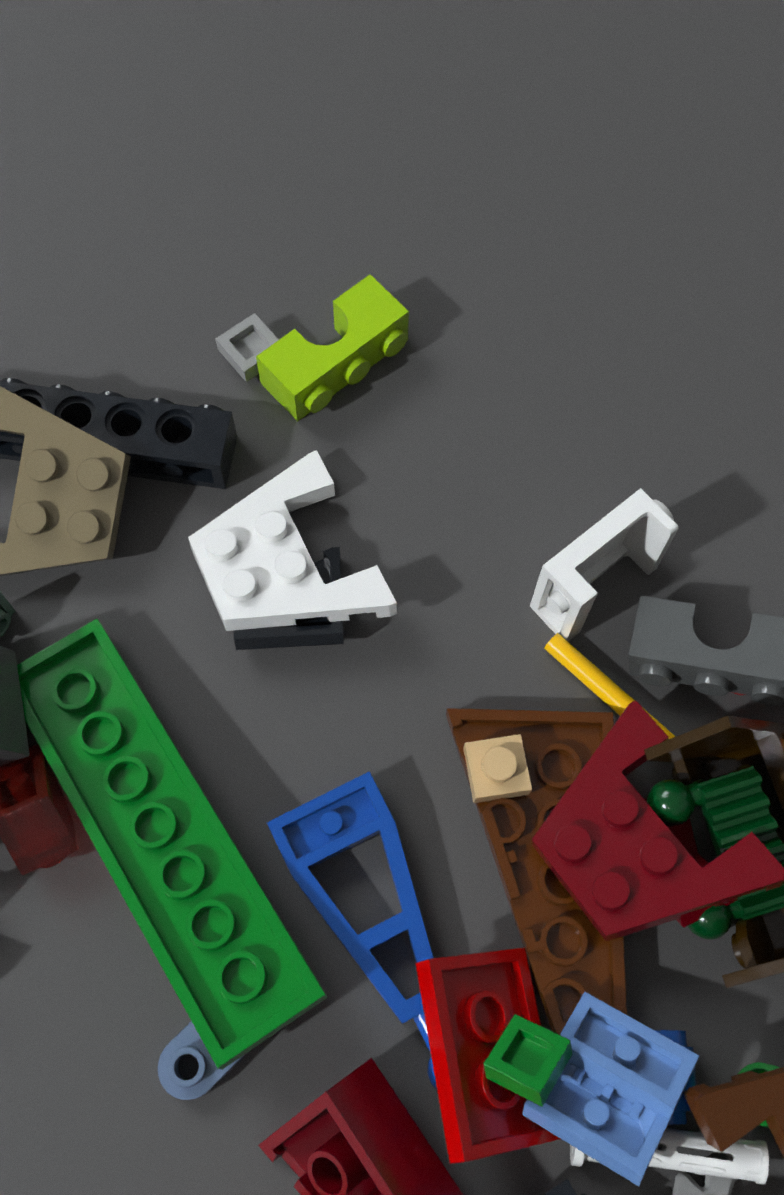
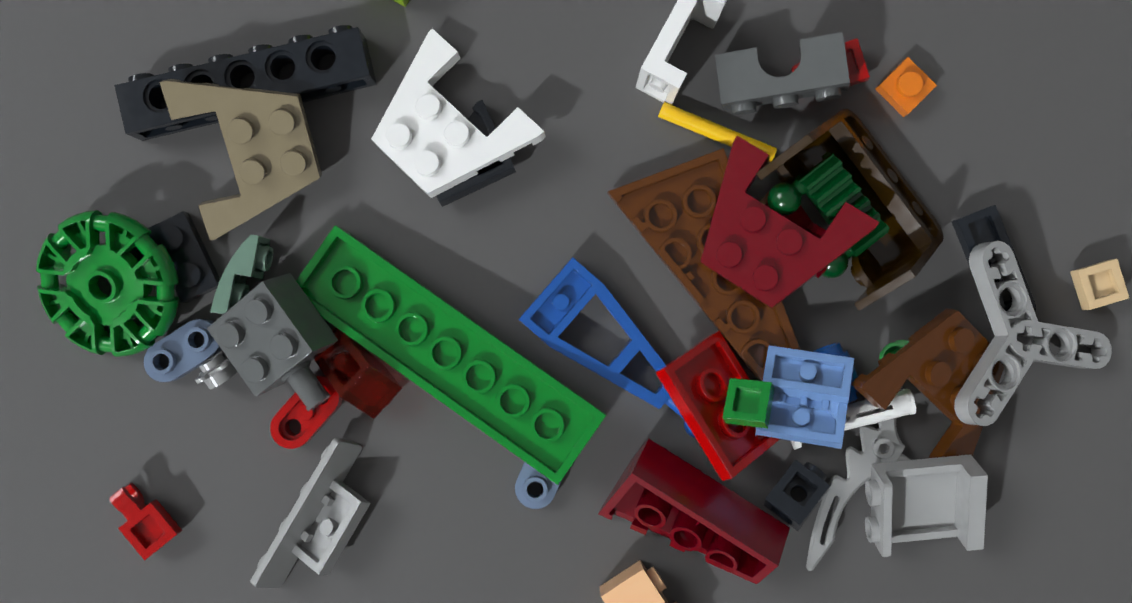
camera: 15 degrees left, 20 degrees up
(497, 768) = (658, 220): tan plate -> none

